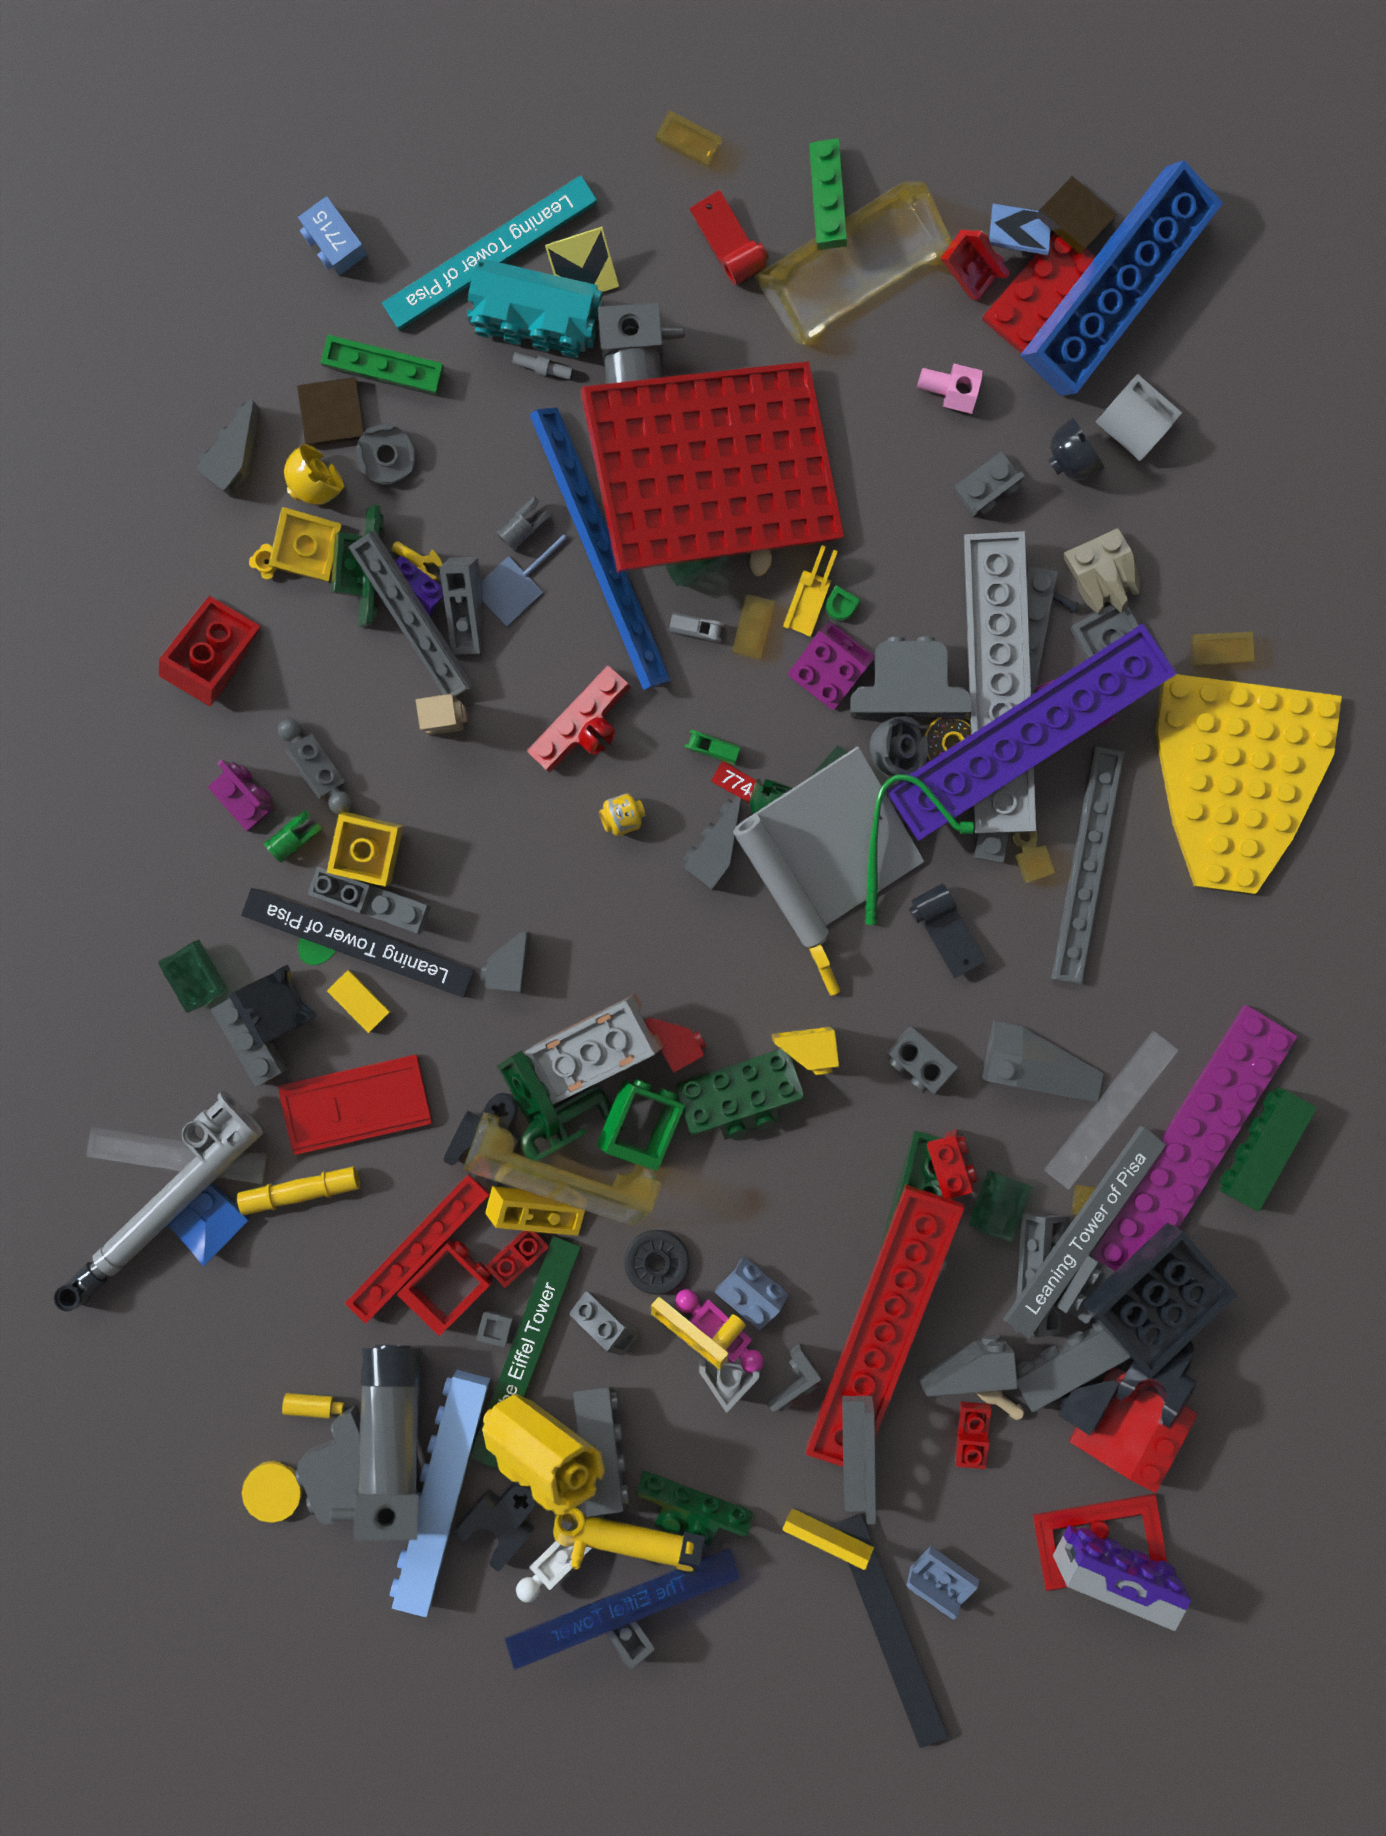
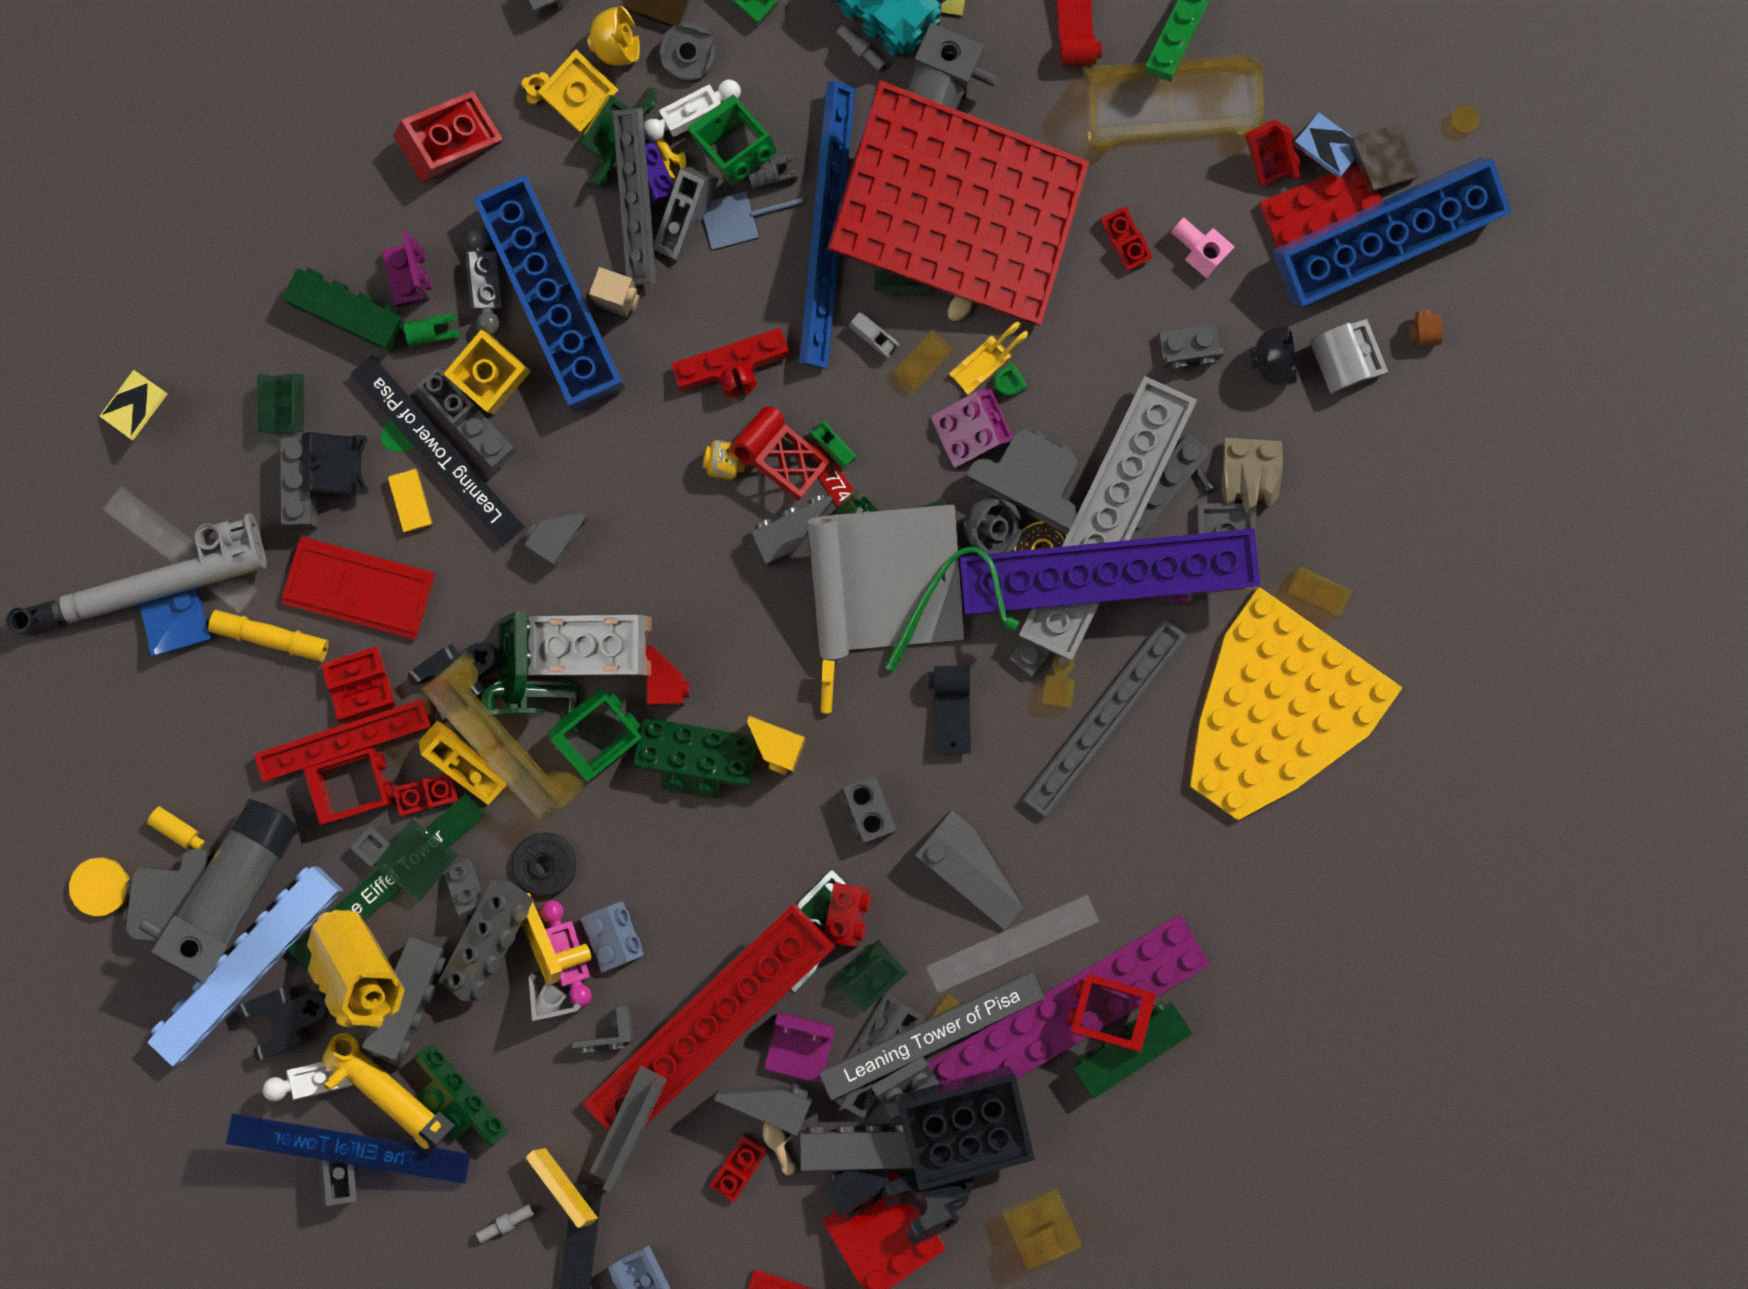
camera: 25 degrees right, 5 degrees down
(60, 1048) = (133, 405): none -> light yellow piece
(202, 860) = (343, 309): none -> dark green brick
(380, 746) = (548, 293): none -> blue brick
(403, 1190) = (358, 684): none -> red slope
(419, 507) = (686, 111): none -> white plate
(456, 493) = (730, 114): none -> green window
(541, 1320) = (415, 859): none -> clear green tile
(644, 1359) = (486, 940): none -> dark grey brick
(647, 774) = (762, 436): none -> red piece
(793, 1593) = (505, 1223): none -> light grey bar
(877, 416) = (1125, 238): none -> red slope
(971, 1301) = (799, 1046): none -> magenta bracket
(1130, 139) = (1464, 119): none -> clear yellow tile
(1196, 354) = (1426, 329): none -> dark orange plate
(1268, 1120) = (1076, 1015): none -> red window
(1271, 1349) = (1046, 1242): none -> clear yellow brick

